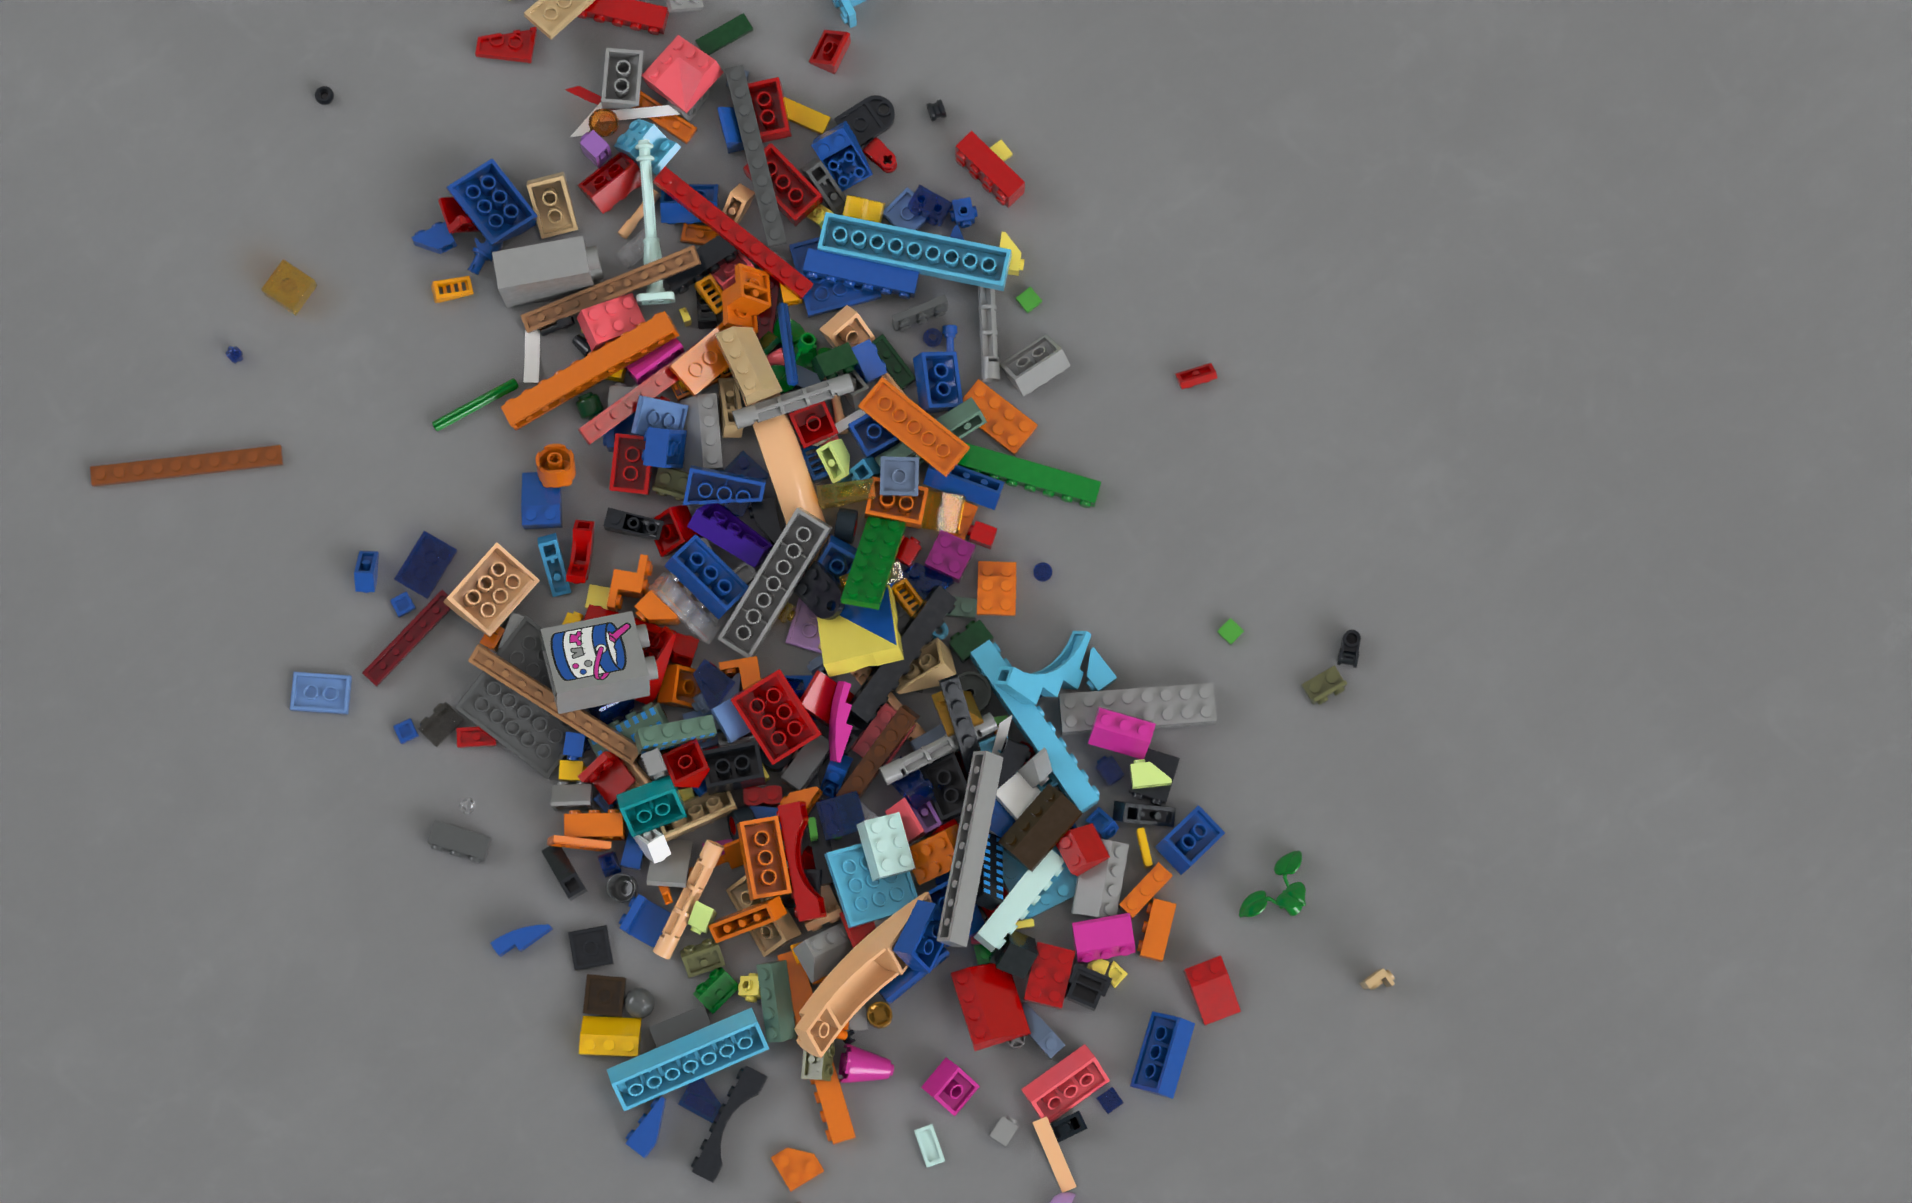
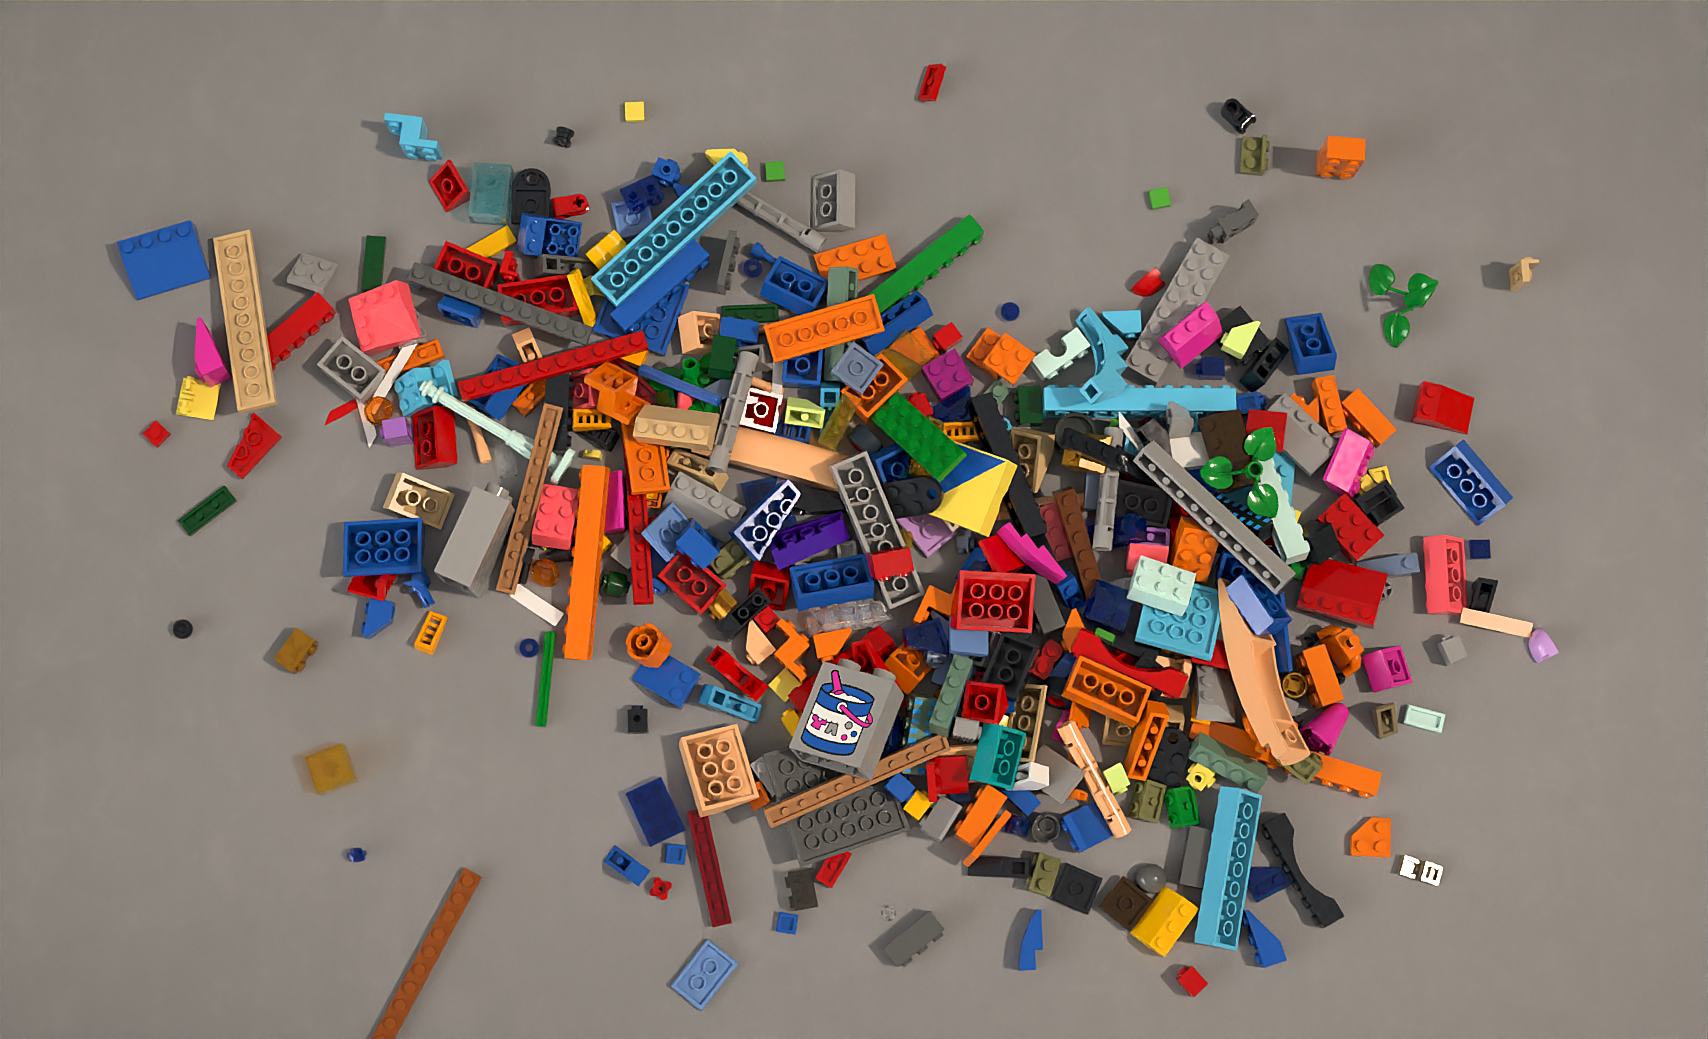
camera: 60 degrees left, 0 degrees up
(361, 607) = (655, 889): none -> red plate
(365, 195) = (296, 651): none -> pearl gold brick
(432, 47) = (207, 510): none -> dark green tile
(490, 506) = (638, 727): none -> black brick
(491, 380) = (529, 654): none -> clear blue plate
(561, 344) = (545, 572): none -> clear orange hair
(575, 1090) = (1191, 980): none -> red brick
(583, 911) = (1043, 874): none -> olive bracket
(617, 553) = (758, 646): none -> light nougat slope
(629, 502) = (722, 605): none -> pearl gold arch
(642, 545) = (766, 620): none -> red brick
(748, 950) = (1170, 759): none -> black plate
(749, 609) = (890, 562): none -> brick
(792, 142) = (509, 268): none -> red bracket
(807, 217) = (582, 297): none -> yellow tile
(845, 85) = (490, 193): none -> clear light blue brick
(901, 1030) = (1320, 677): none -> orange brick
(904, 1112) = (1384, 720): none -> dark tan slope
(940, 1036) = (1342, 647): none -> orange torso
(989, 169) = (645, 127): red brick -> none
(1011, 828) = (1219, 472): none -> green plant
(1048, 645) = (1048, 365): none -> light aqua arch
(1130, 878) = (1311, 409): none -> orange slope
(1144, 848) = (1292, 383): yellow tile -> none
(1147, 671) = (1149, 284): none -> red brick
(1247, 706) = (1233, 223): none -> dark grey hips
(1368, 757) = (1340, 157): none -> orange brick

